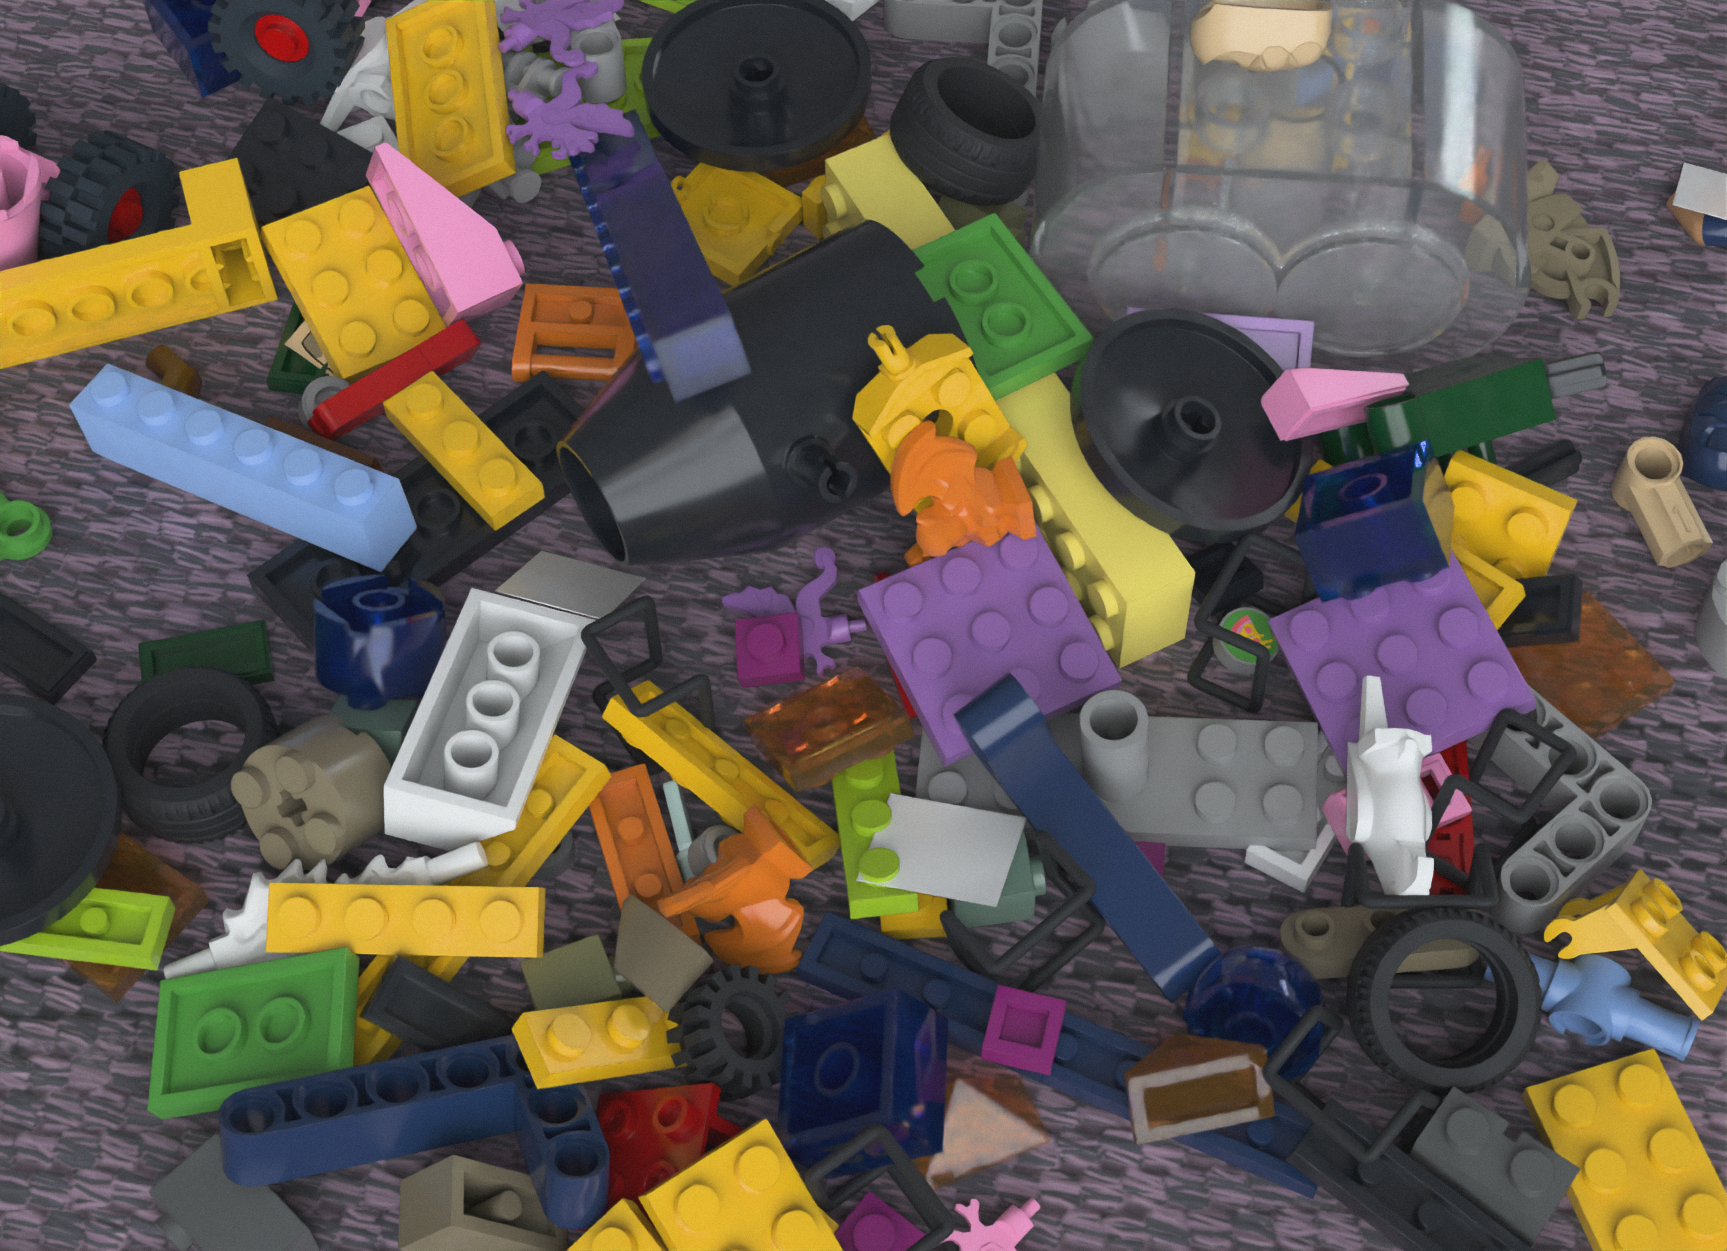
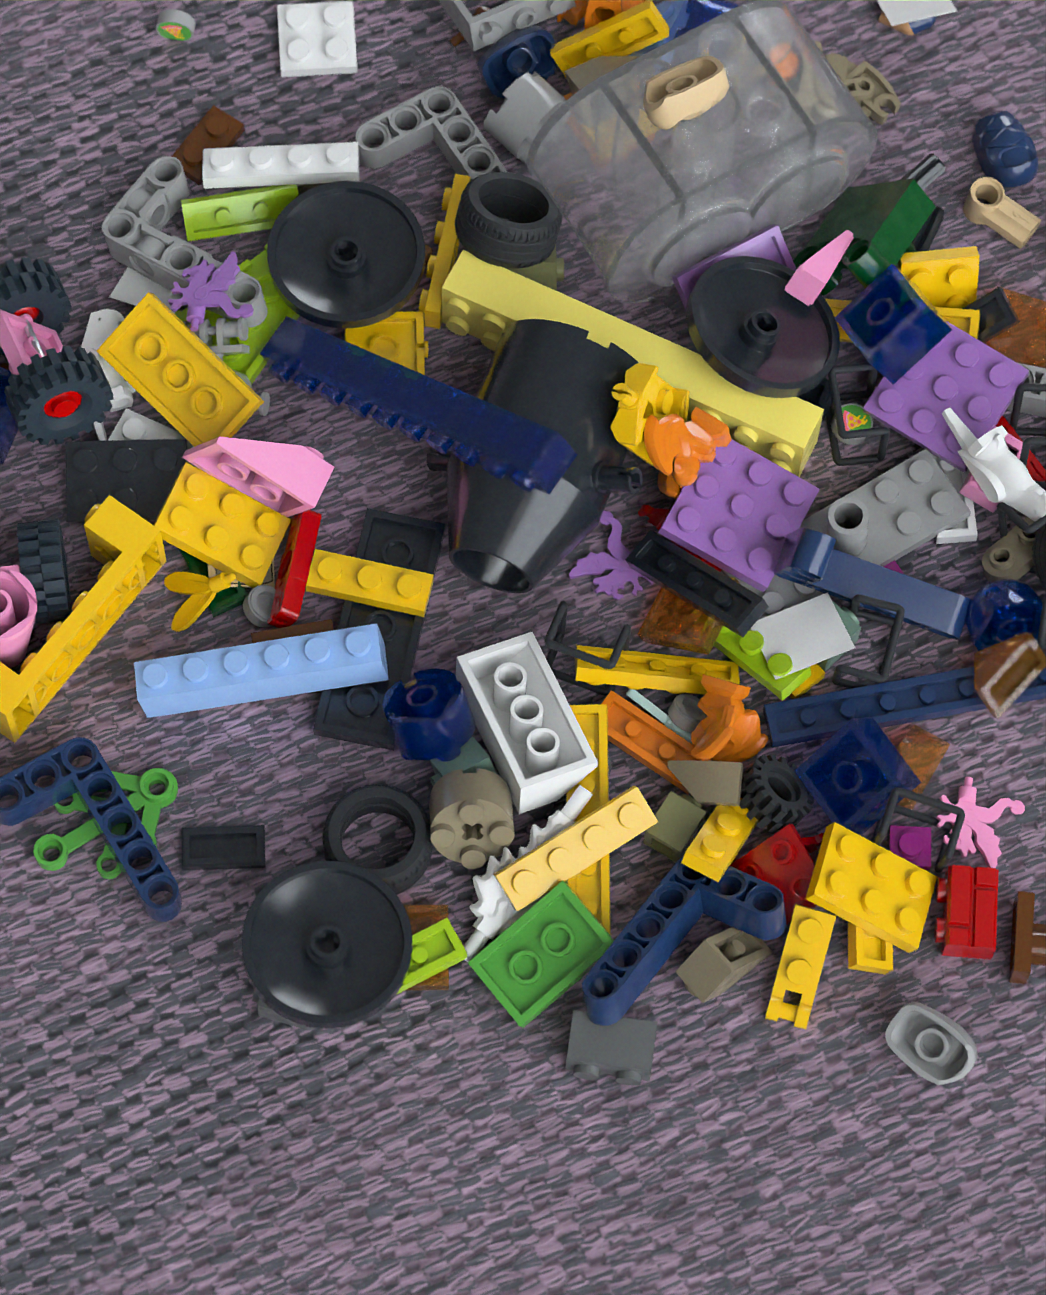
camera: 40 degrees left, 10 degrees up
(174, 371) = (156, 642): reddish brown arm -> none
(233, 648) = (328, 784): dark green tile -> none
(273, 341) = (202, 593): none -> yellow piece
(430, 1010) = (622, 884): black tile -> none
(563, 115) = (266, 354): medium lavender piece -> none
(571, 319) = (359, 462): orange plate -> none
(571, 585) = (492, 620): white sticker -> none
(769, 650) = (620, 587): magenta plate -> none
(849, 692) = (697, 583): none -> black plate
(1002, 305) = (617, 316): bright green plate -> none
(1023, 1030) = (909, 699): magenta plate -> none

